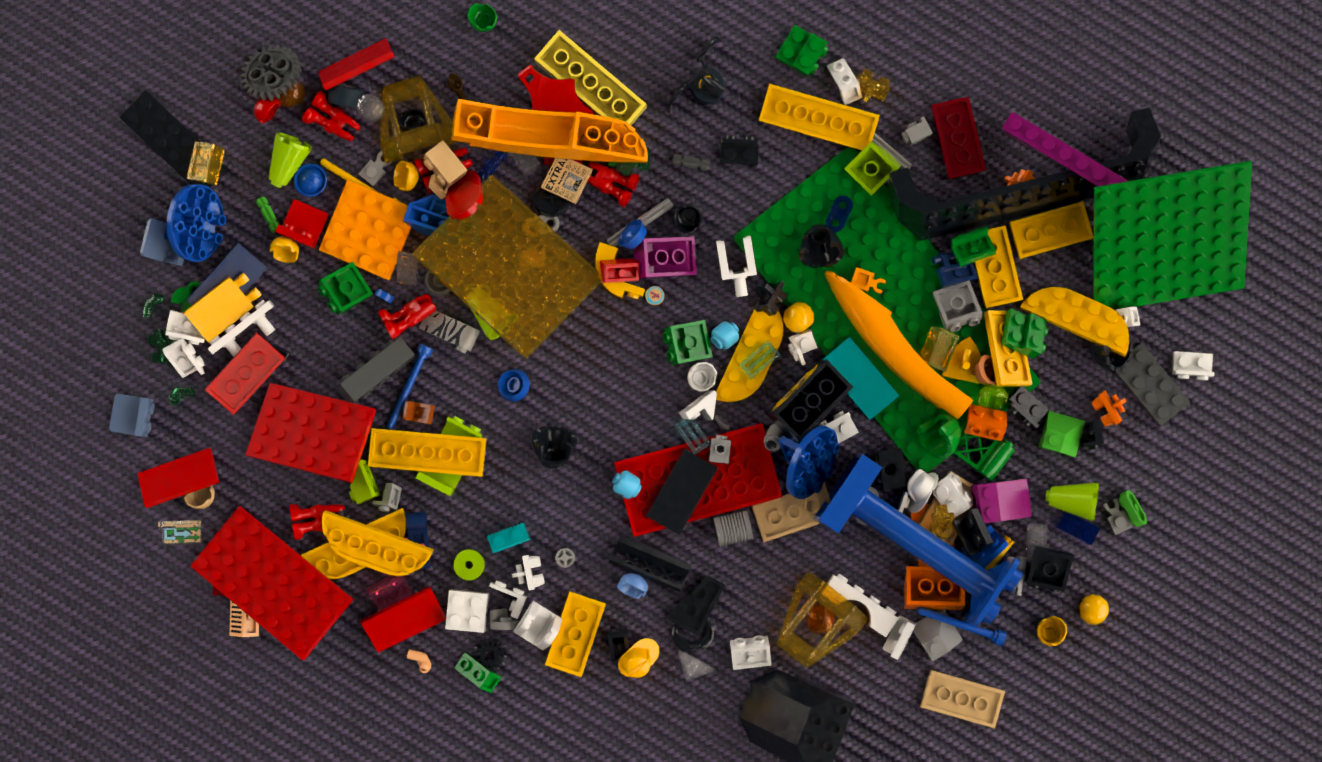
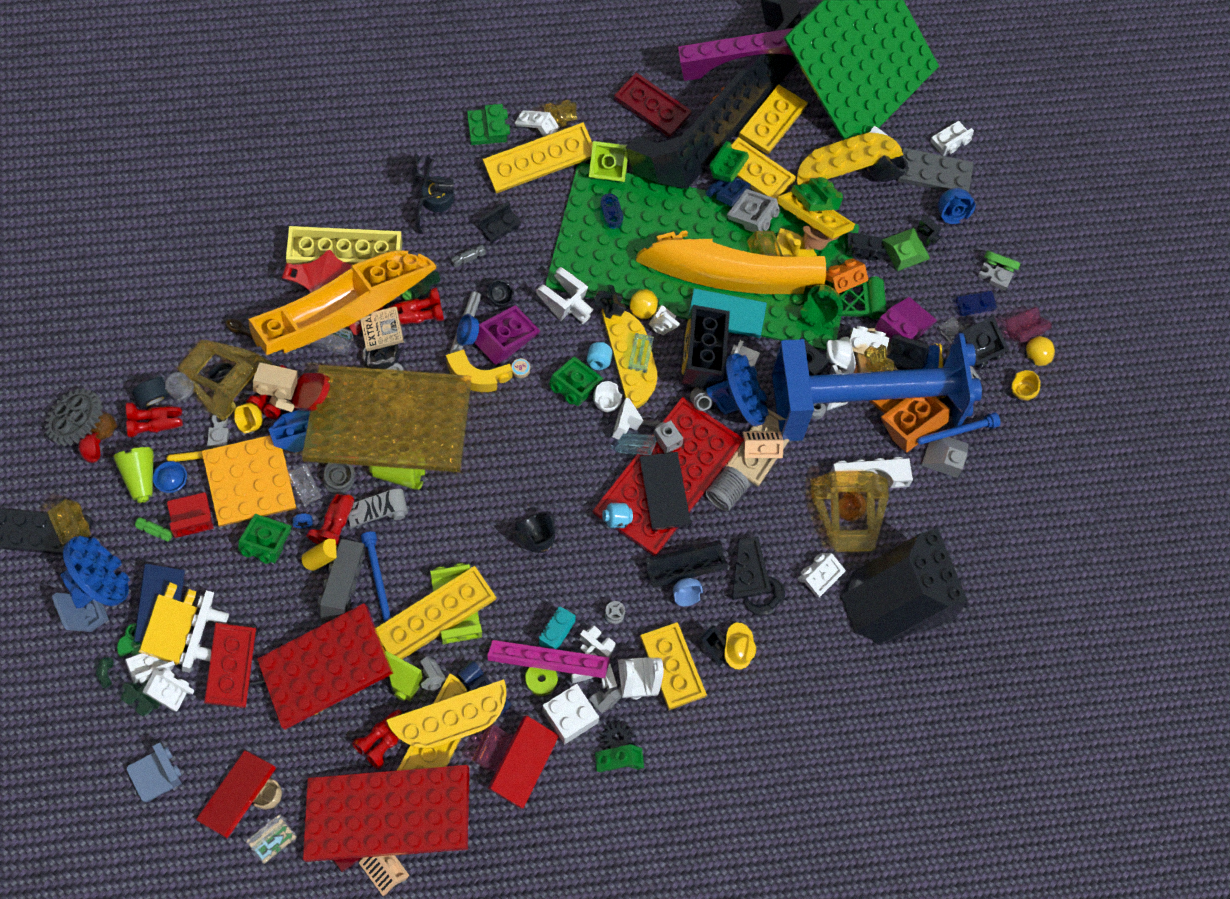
camera: 45 degrees left, 20 degrees down
(179, 393) = (184, 724): clear green arm -> none
(284, 249) = (189, 544): yellow hair -> none
(356, 64) = (142, 362): red tile -> none
(374, 337) = (319, 555): none -> yellow brick
(418, 412) = (403, 589): dark orange bracket -> none
(421, 658) = (564, 785): light nougat arm -> none
(482, 17) = (219, 263): green hair -> none
(482, 557) = (548, 659): none -> dark pink plate
(491, 165) = (313, 361): clear blue axle -> none
(513, 385) = (463, 513): blue hat -> none
(619, 270) = (479, 363): red slope -> none
(693, 666) = (786, 617): clear slope -> none
(793, 513) = (763, 445): none -> light nougat panel
(820, 247) = (619, 238): black hair -> none
(899, 637) = (922, 474): white bracket -> none
(916, 132) = (619, 120): light grey brick -> none
(962, 699) = (1007, 486): tan tile -> none
(992, 396) = (835, 252): clear neon green hair -> none
(1075, 499) = (957, 281): lime cone -> none
(1101, 581) = (1027, 325): none -> clear pink bracket
(1112, 416) = (914, 203): orange hips -> none
(1136, 429) = (955, 205): none -> blue cylinder

